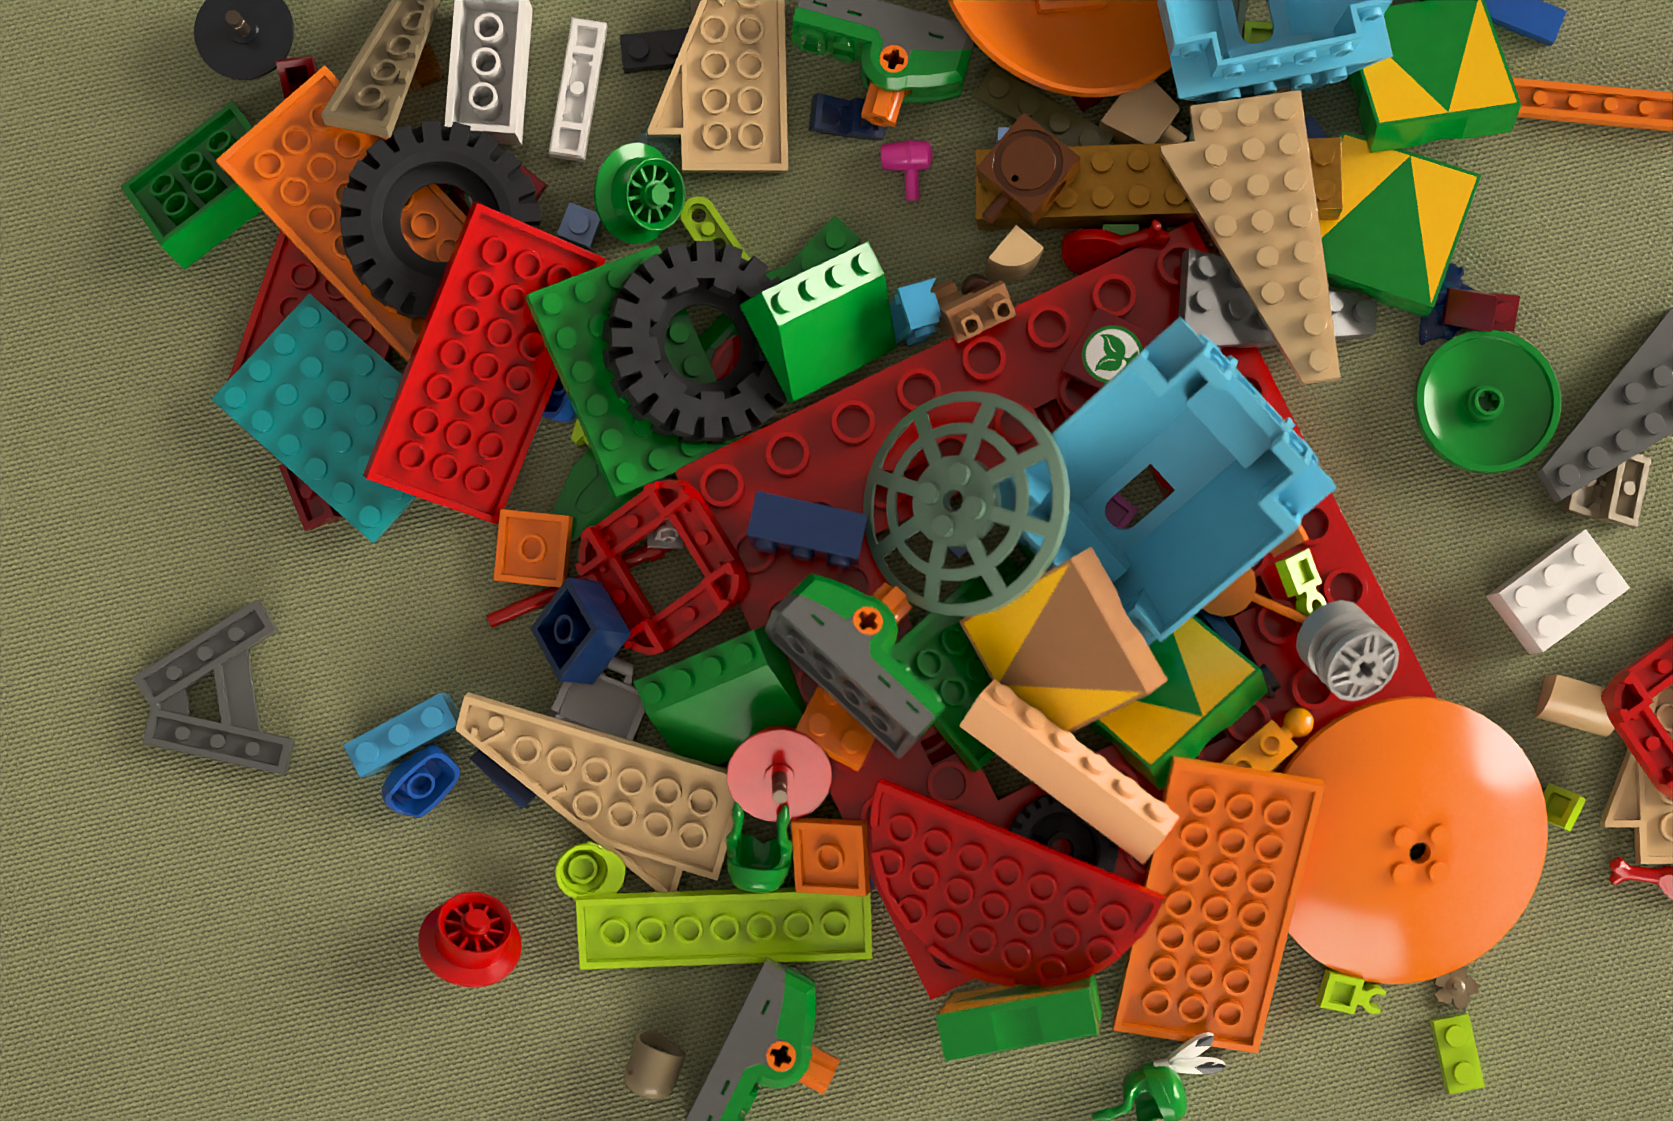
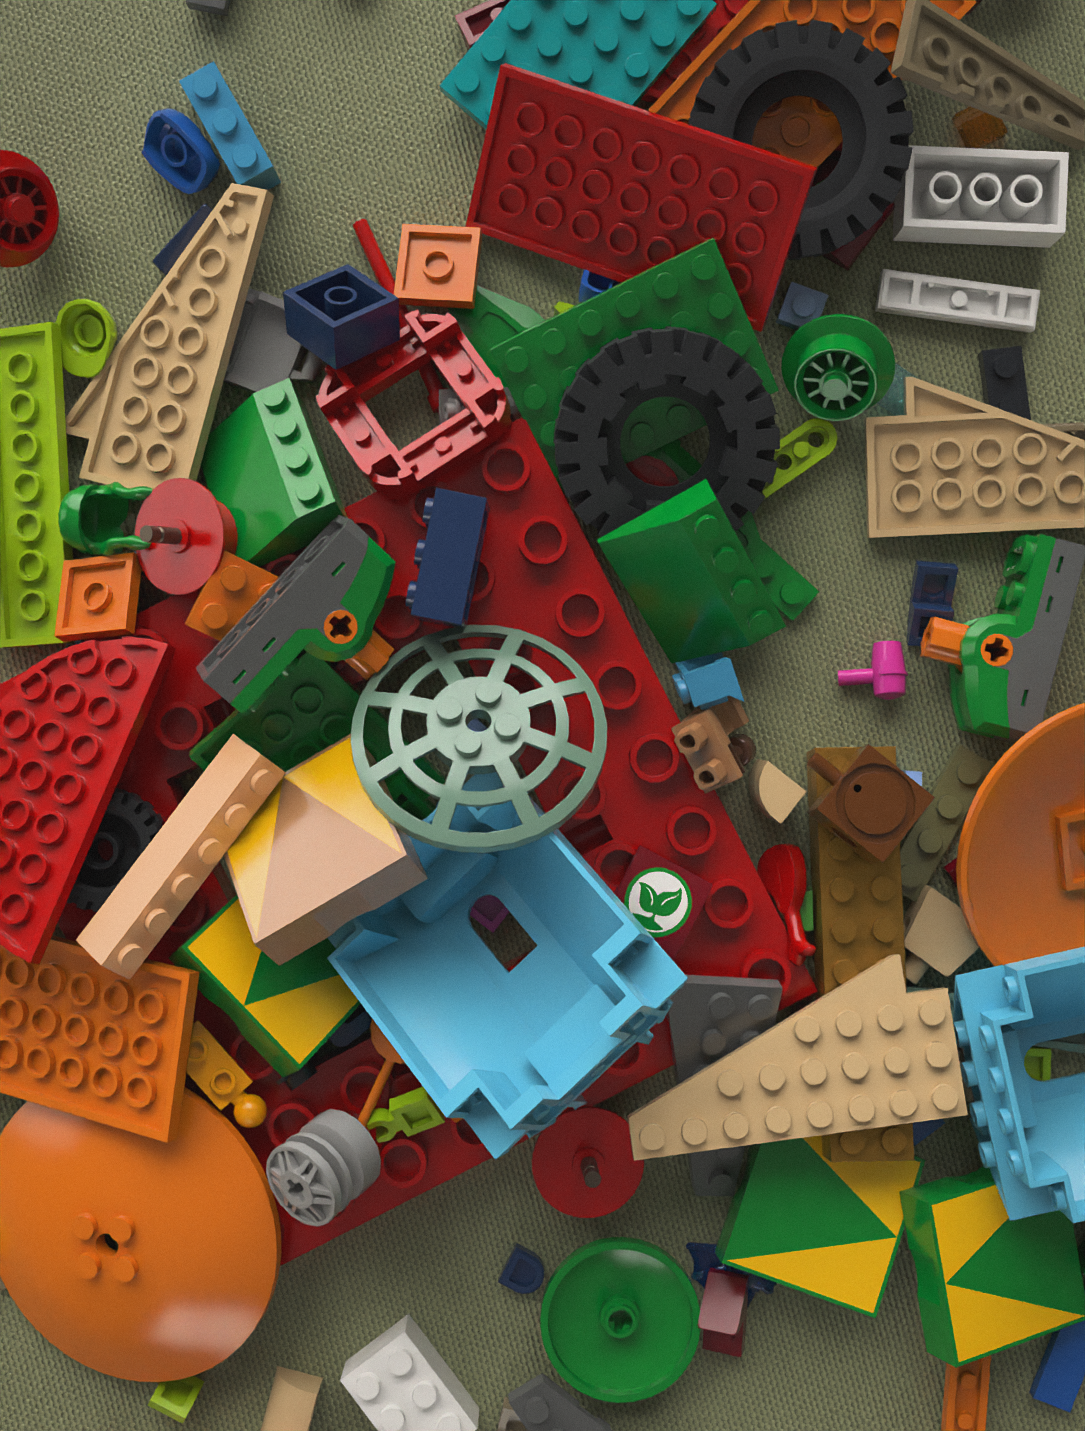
camera: 85 degrees right, 5 degrees up
(1346, 425) = (586, 1163): none -> red piece
(1445, 491) = (522, 1271): none -> dark blue tile

